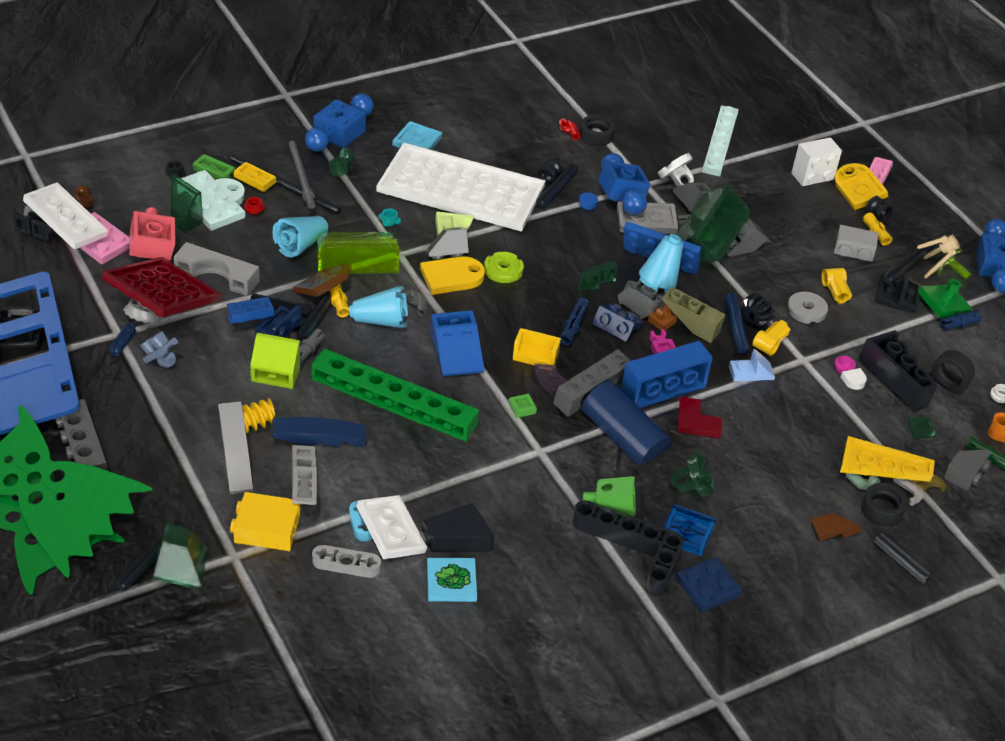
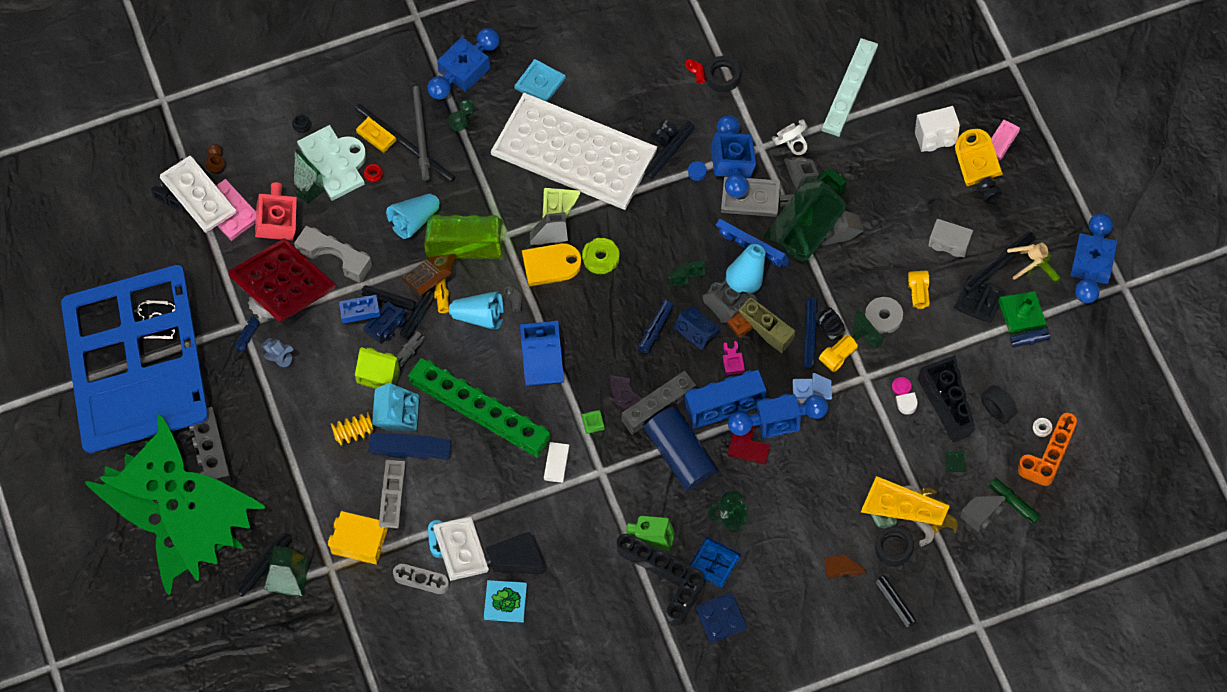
camera: 15 degrees right, 20 degrees up
(214, 167) = (349, 129): bright green tile -> none
(235, 447) = (336, 463): light grey slope -> none
(298, 395) = (395, 408): none -> medium azure slope
(389, 217) = (499, 186): teal plate -> none
(488, 443) = (556, 462): none -> white tile
(536, 348) = (613, 360): yellow panel -> none
(726, 387) = (778, 415): none -> blue brick
(796, 317) = (863, 326): none -> clear green slope
(876, 226) = (980, 216): yellow pin -> none

